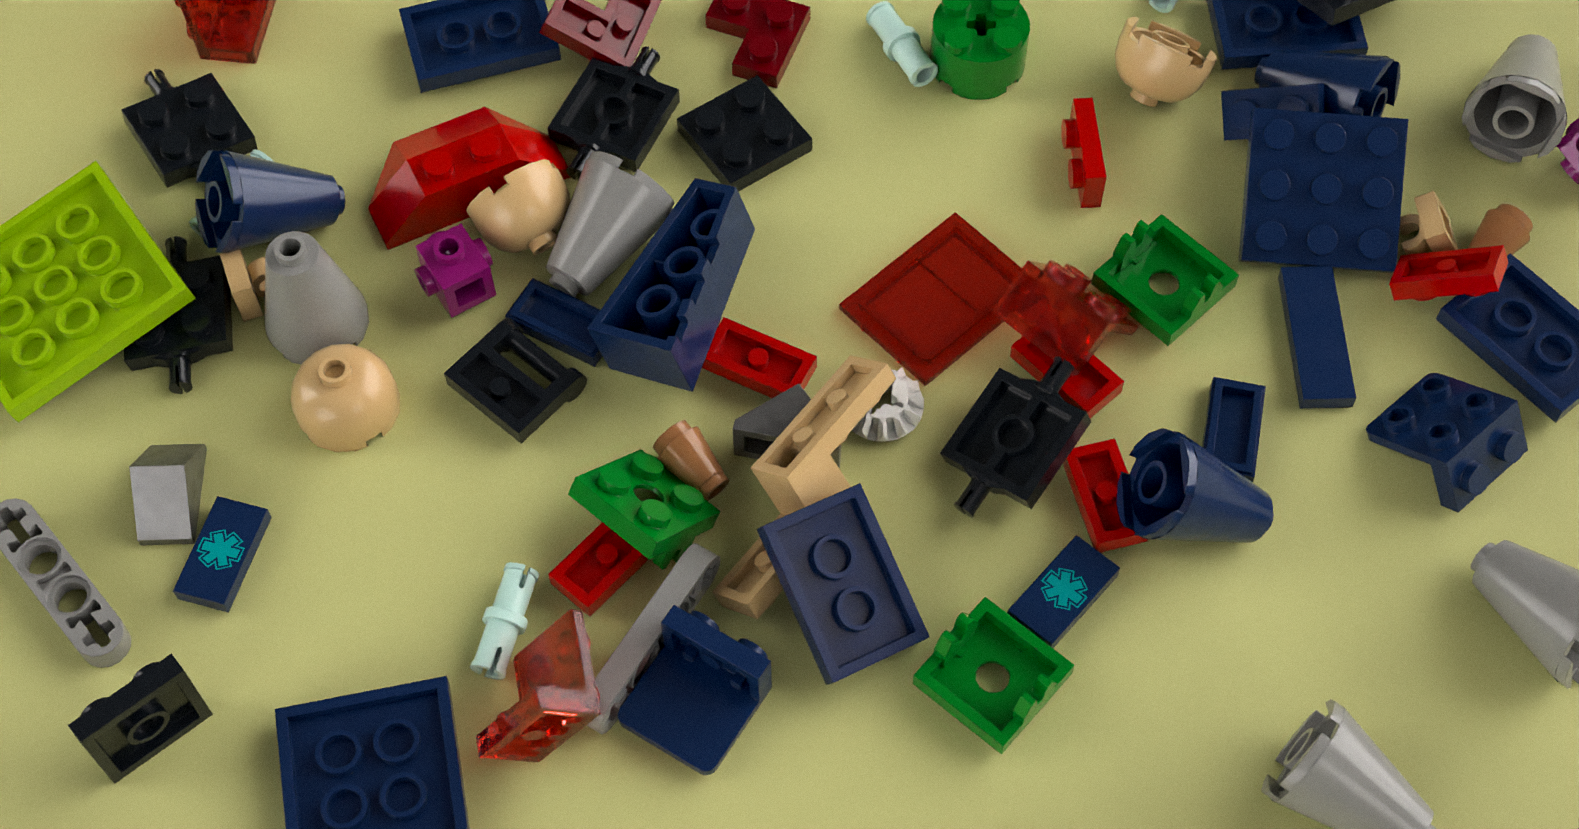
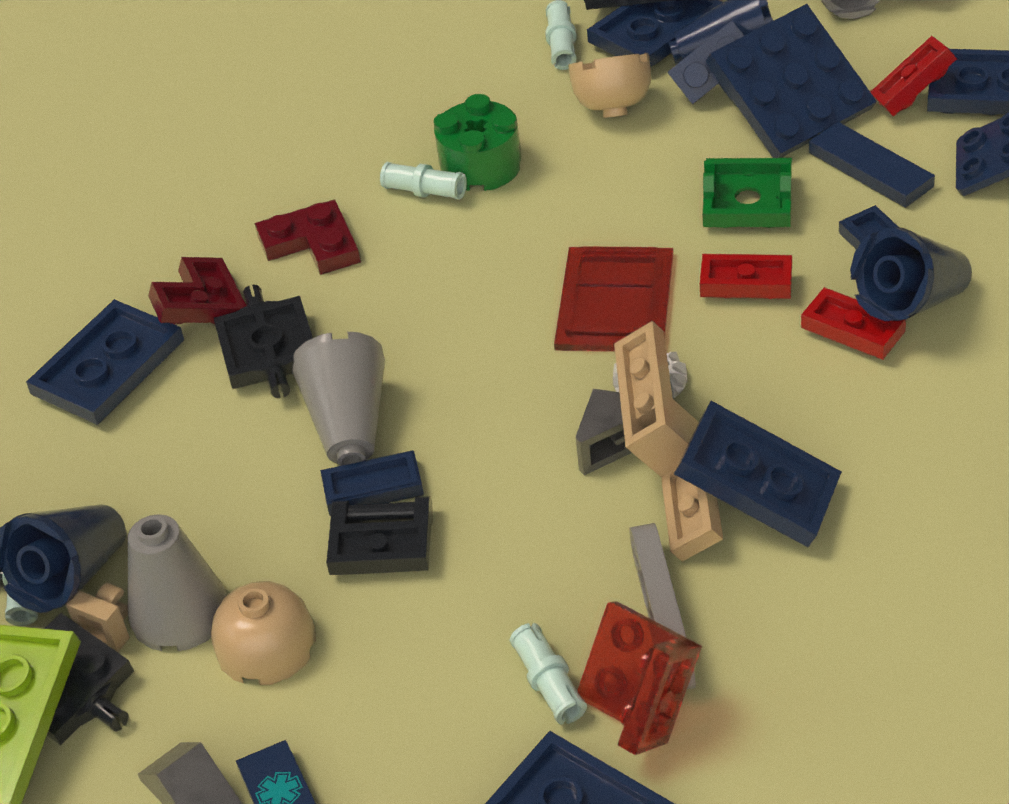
camera: 35 degrees left, 15 degrees down
(444, 167) = (188, 448): red wedge -> none
(455, 269) = (262, 496): magenta brick -> none
(524, 210) = (273, 429): tan cylinder -> none
(596, 569) = (575, 585): red plate -> none
(650, 526) = (554, 529): green piece -> none
(677, 289) = (443, 404): dark blue wedge -> none
(690, 459) = (564, 490): medium nougat cone -> none
(697, 691) = (733, 605): dark blue bracket -> none
(744, 134) = (372, 297): black plate -> none
(757, 360) = (540, 407): red plate -> none
(997, 638) = (925, 441): green piece -> none
(1015, 437) = (764, 326): black plate -> none
(1061, 313) = (714, 240): clear red bracket -> none
(1064, 591) = (890, 393): dark blue tile -> none
(1087, 167) = (618, 159): red plate -> none
(1432, 224) = (871, 63): tan tile -> none
(1505, 227) = (909, 37): medium nougat cone -> none

